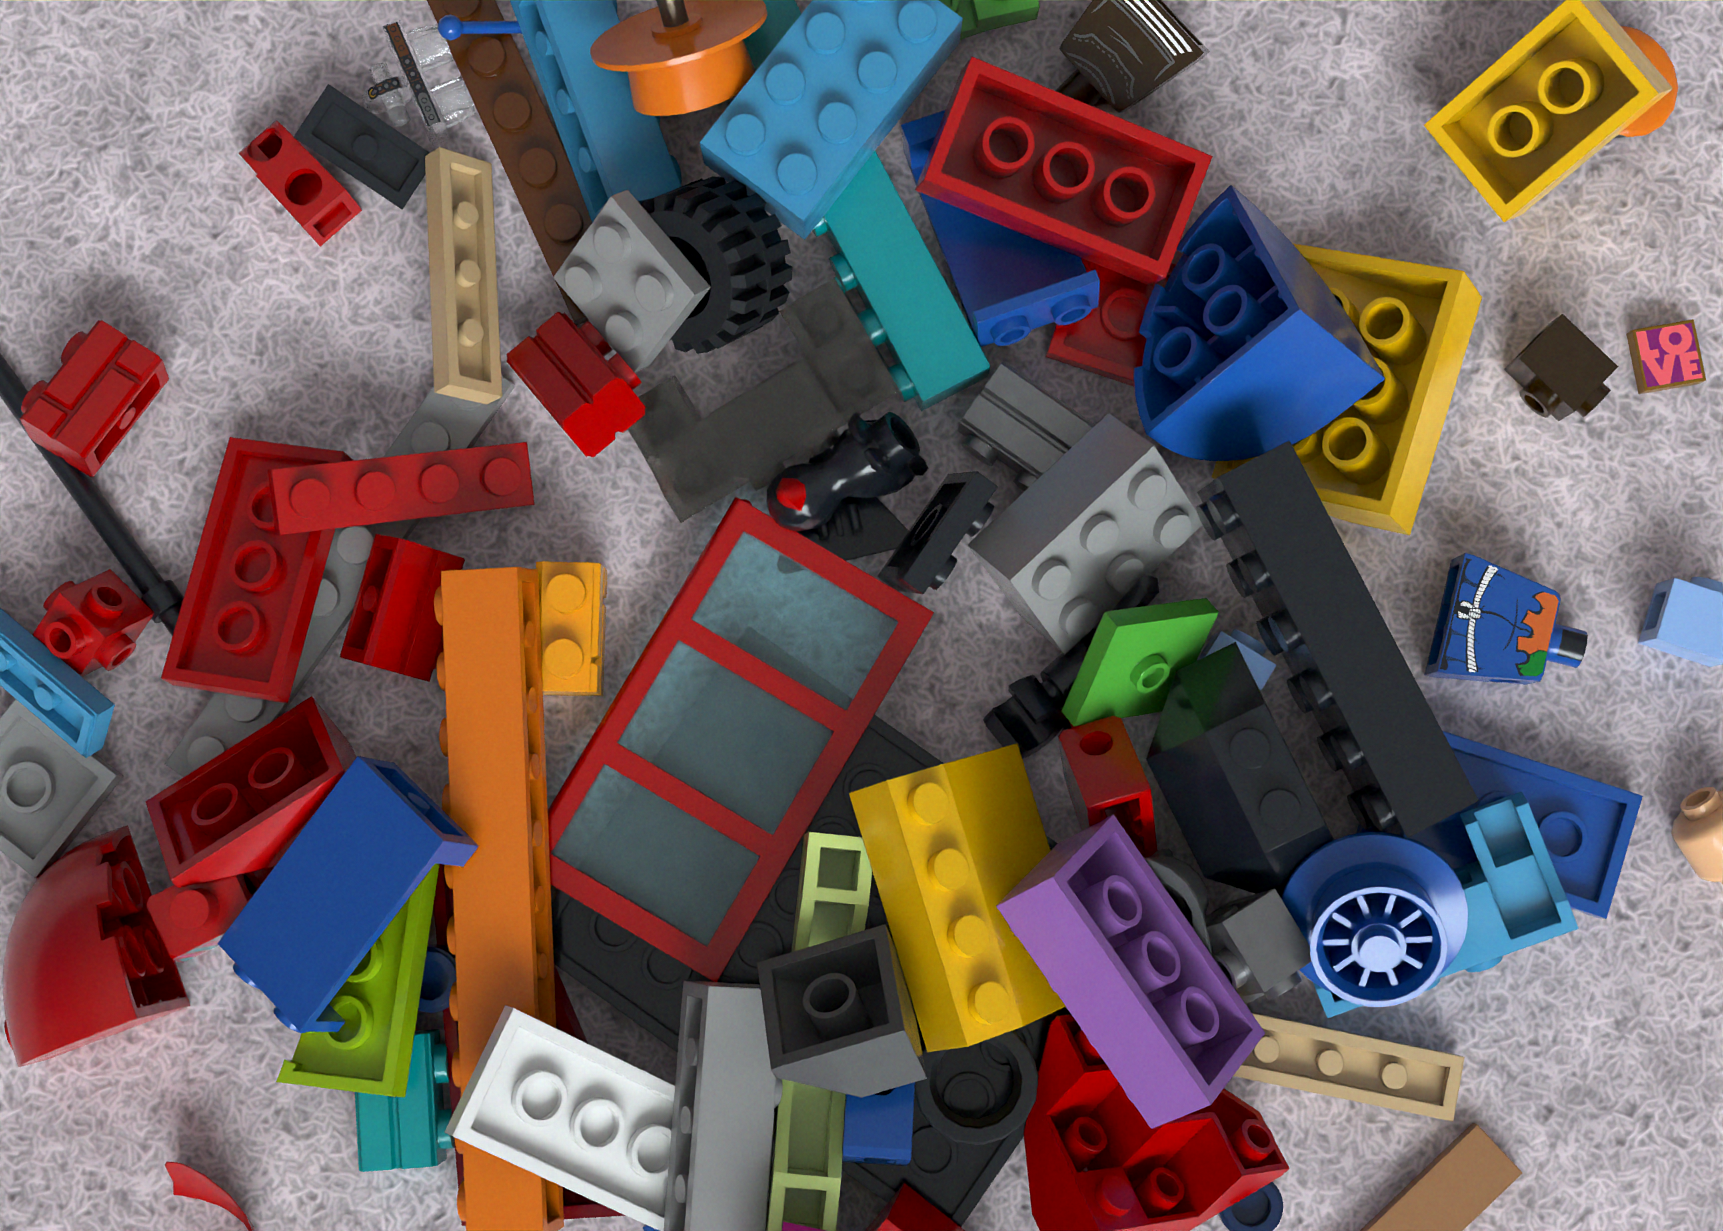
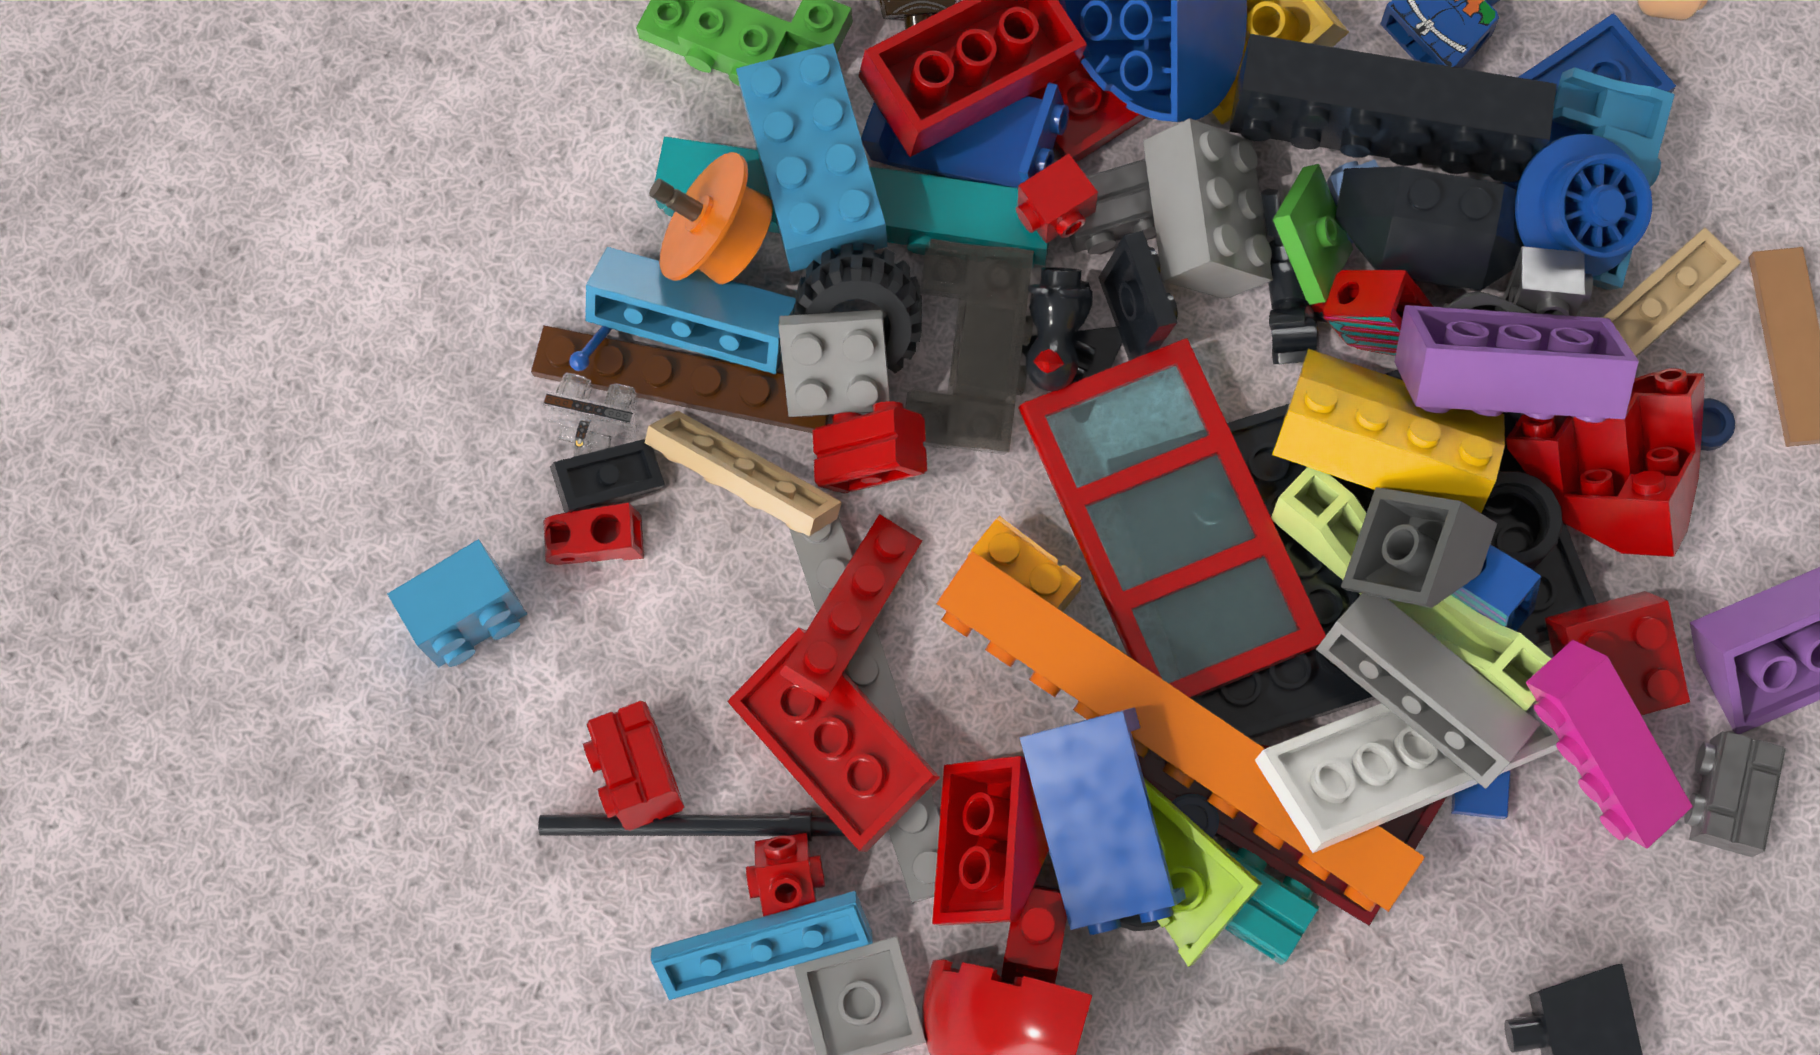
camera: 45 degrees left, 10 degrees down
(118, 105) = (458, 605): none -> dark azure brick
(395, 611) = (929, 666): red brick -> none
(972, 373) = (1056, 200): none -> red brick

